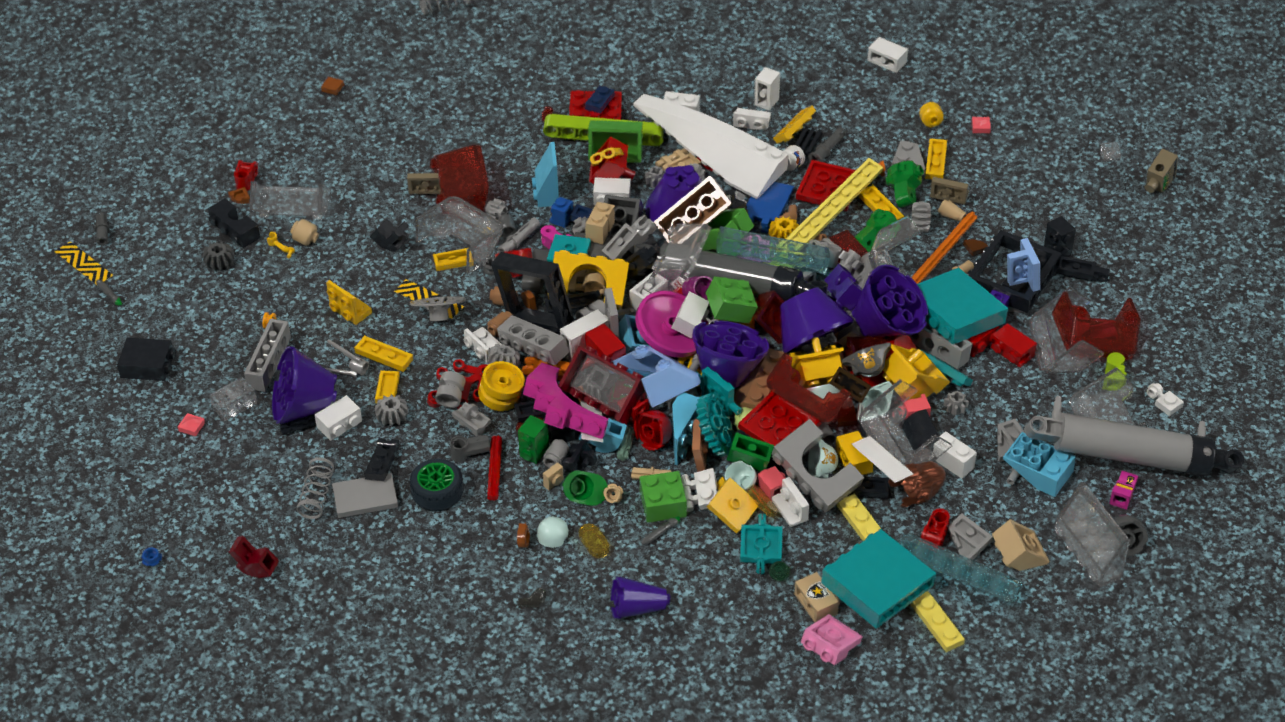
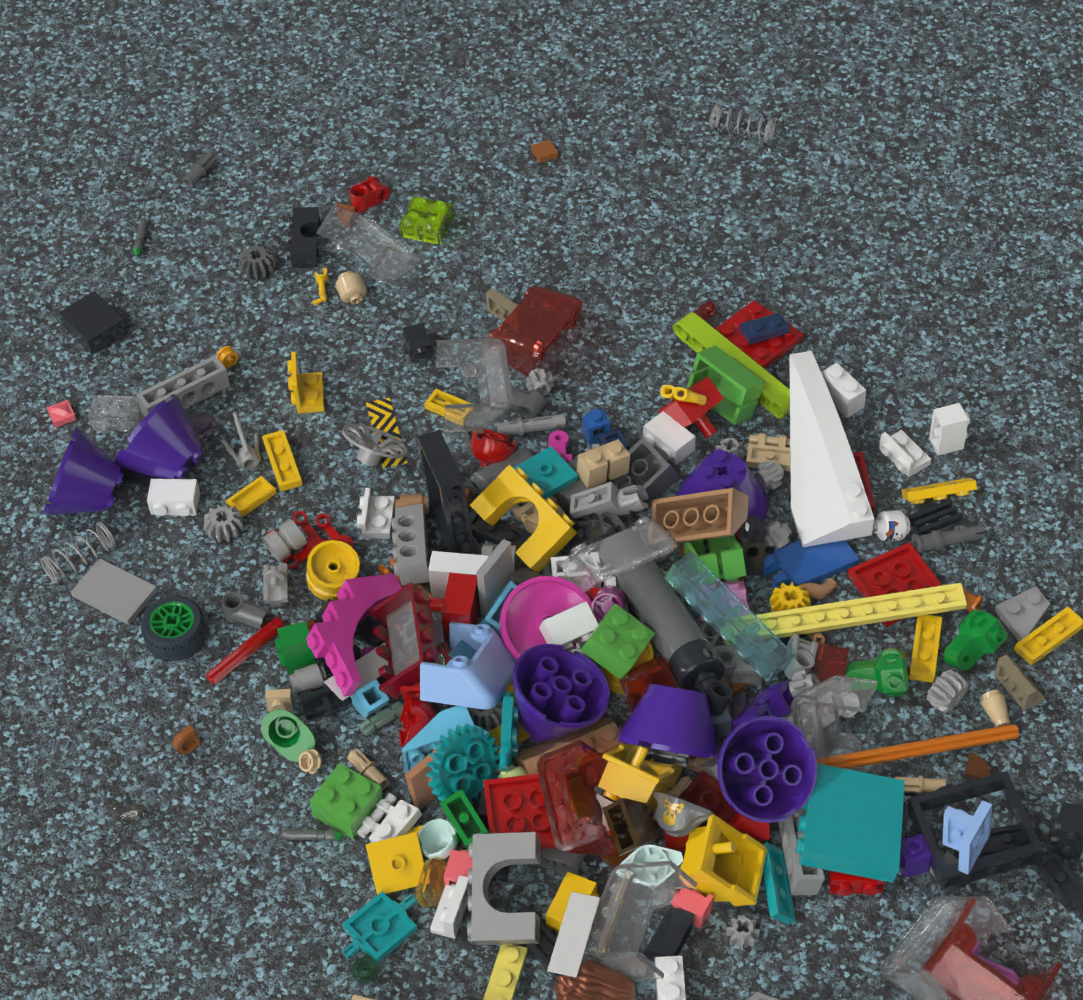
camera: 45 degrees right, 5 degrees up
(83, 262) = (155, 193): sticker -> none
(267, 441) = (83, 479): none -> dark purple cone
(304, 166) = (426, 220): none -> clear neon green piece
(381, 459) = (162, 566): black plate -> none
(503, 353) = (371, 543): light grey gear -> none
(546, 178) = (616, 384): medium azure slope -> none
(552, 532) = (219, 756): light aqua hair -> none
(594, 540) = (243, 795): clear yellow tile -> none
(636, 598) = (202, 887): dark purple cone -> none
(822, 460) = (536, 887): light aqua hat -> none
(1013, 345) = (880, 915): red brick -> none

